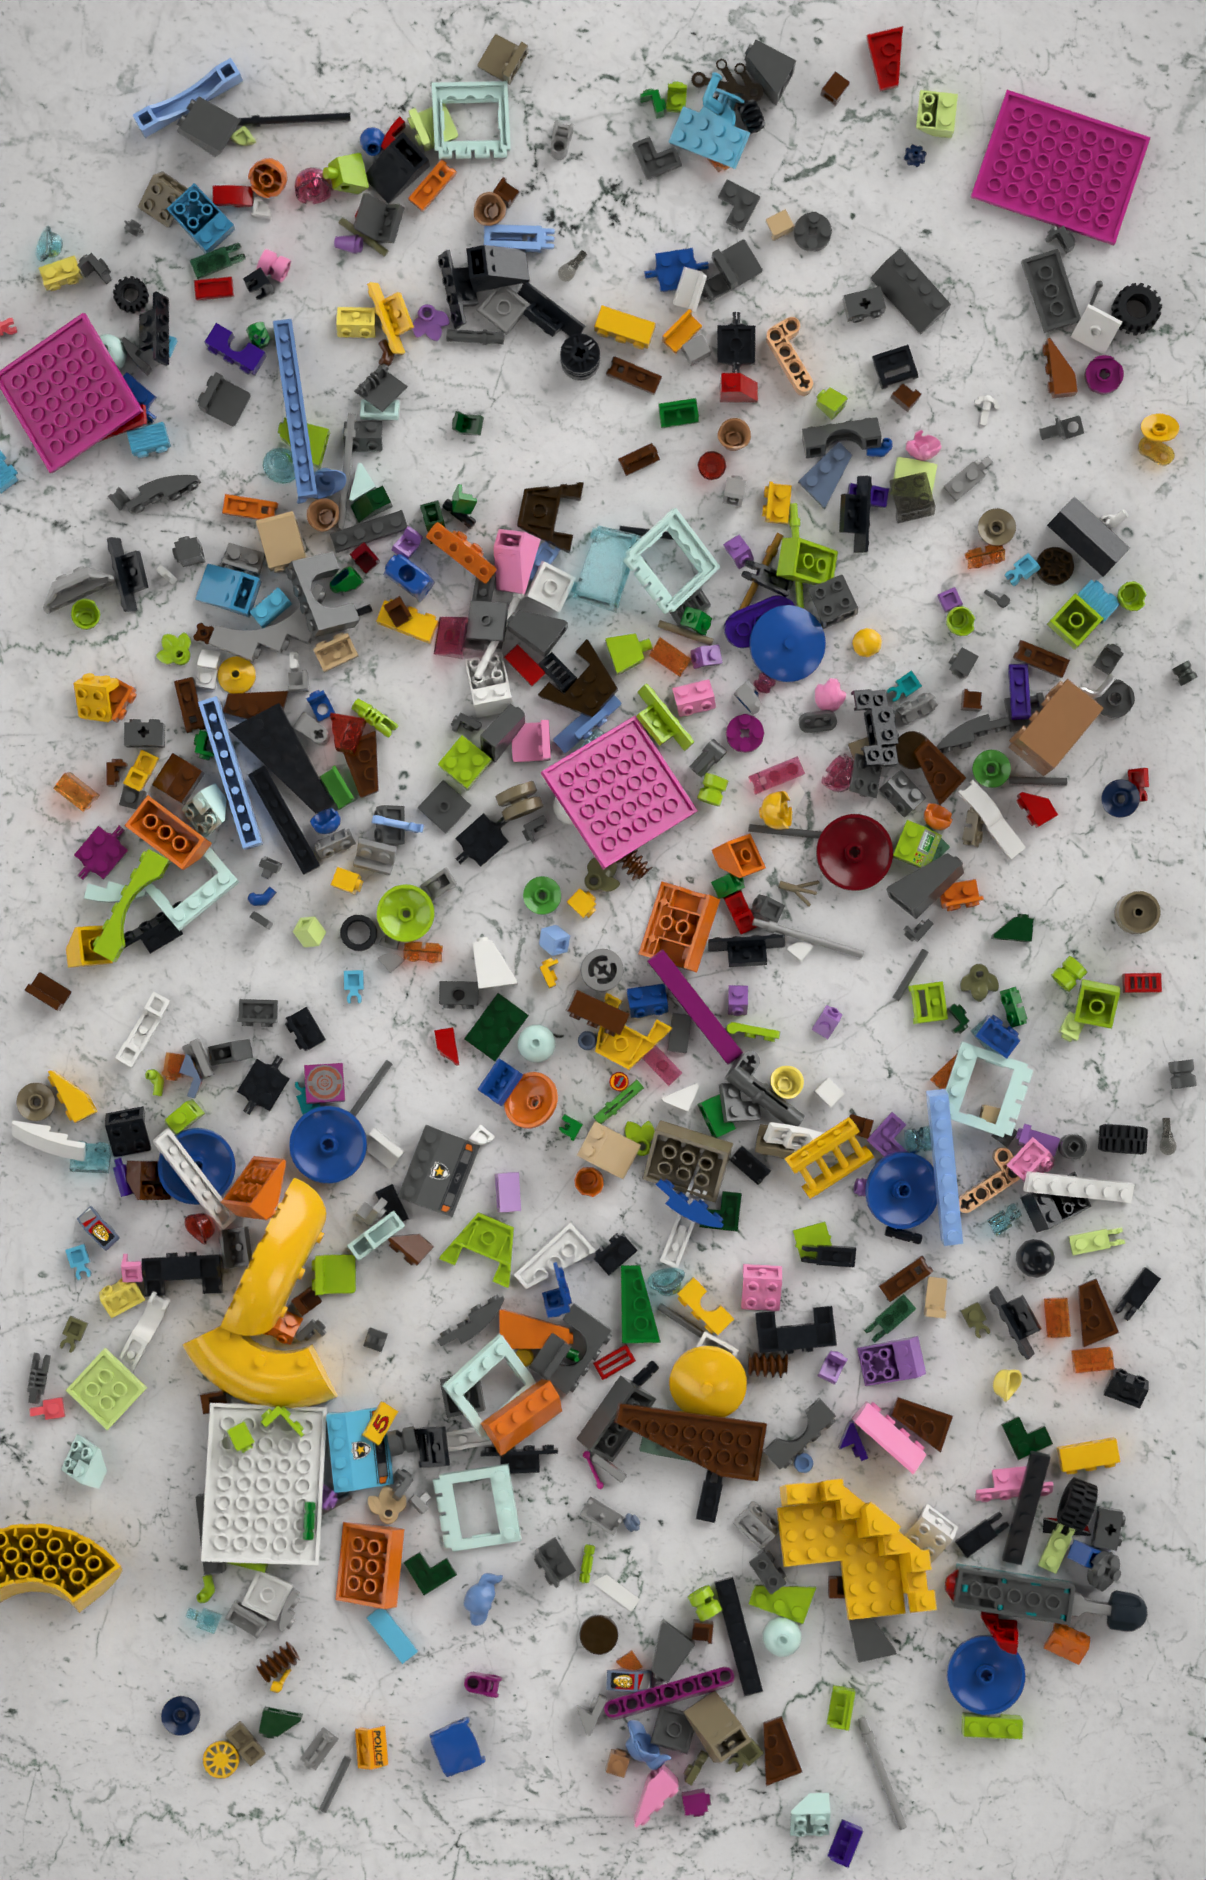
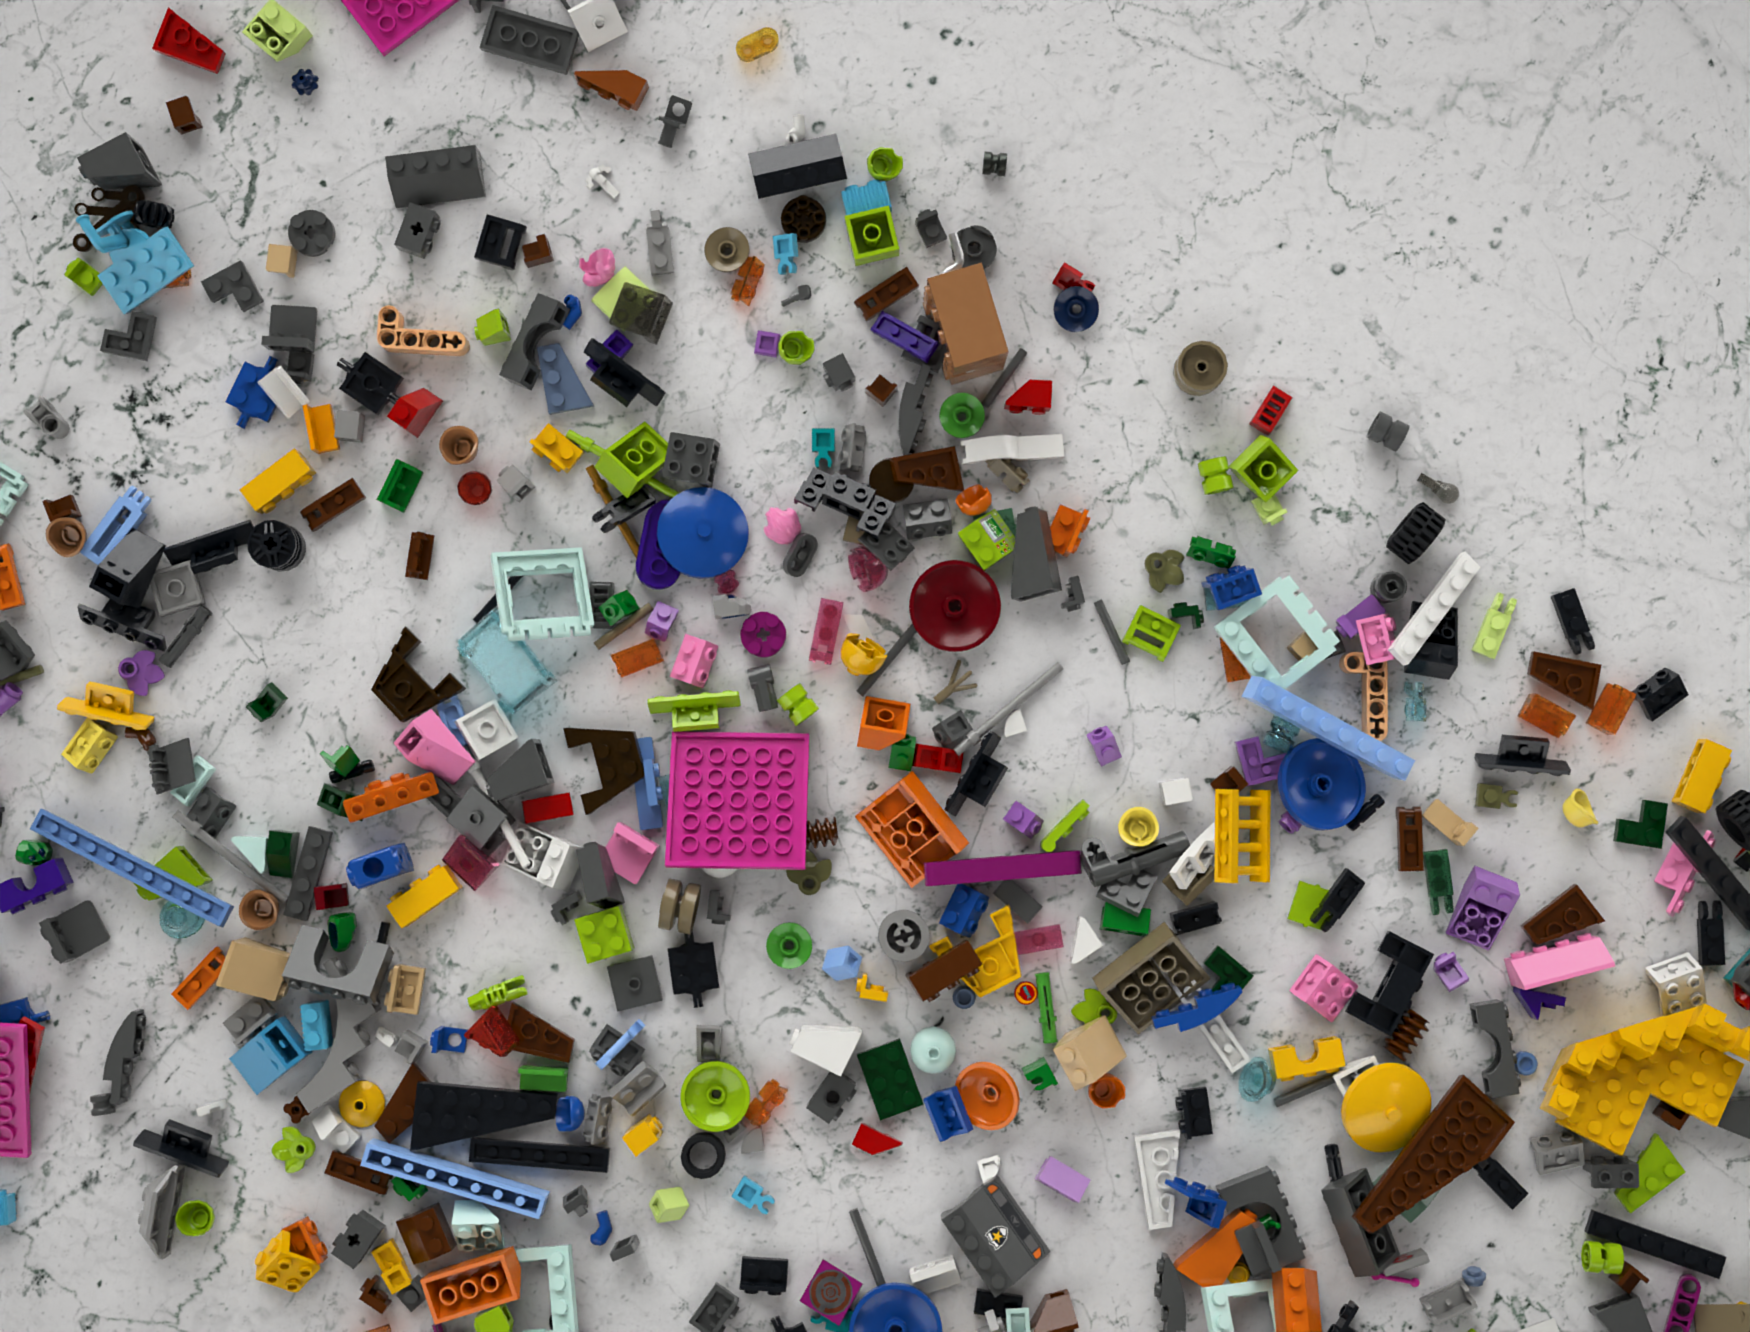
camera: 55 degrees left, 0 degrees up
(148, 440) = (63, 1034): medium azure brick -> none
(188, 551) = (202, 1071): dark grey brick -> none
(309, 728) = (464, 1065): light grey piece -> none
(327, 483) = (229, 886): medium blue hair -> none
(398, 612) = (406, 901): reddish brown panel -> none
(408, 543) = (346, 843): medium lavender bracket -> none
(486, 1238) = (1095, 1231): lime wing -> none
(559, 683) = (591, 778): black slope -> none
(568, 270) = (183, 499): clear smoke piece -> none
(583, 903) = (824, 910): yellow brick -> none
(627, 651) = (602, 696): lime torso -> none
(628, 1353) = (1292, 1185): red tile -> none
(637, 1314) = (1266, 1129): green wing -> none
(658, 104) = (67, 298): green bracket -> none
(738, 551) = (578, 518): medium lavender bracket -> none
(782, 1636) = (1684, 1201): light aqua cylinder -> none
(867, 642) = (754, 453): yellow hair -> none
(1016, 929) = (1136, 498): dark green slope -> none
(1035, 1258) = (1473, 697): black cylinder -> none
(1111, 366) = (644, 32): magenta plate -> none
(1160, 427) = (737, 25): yellow dish -> none

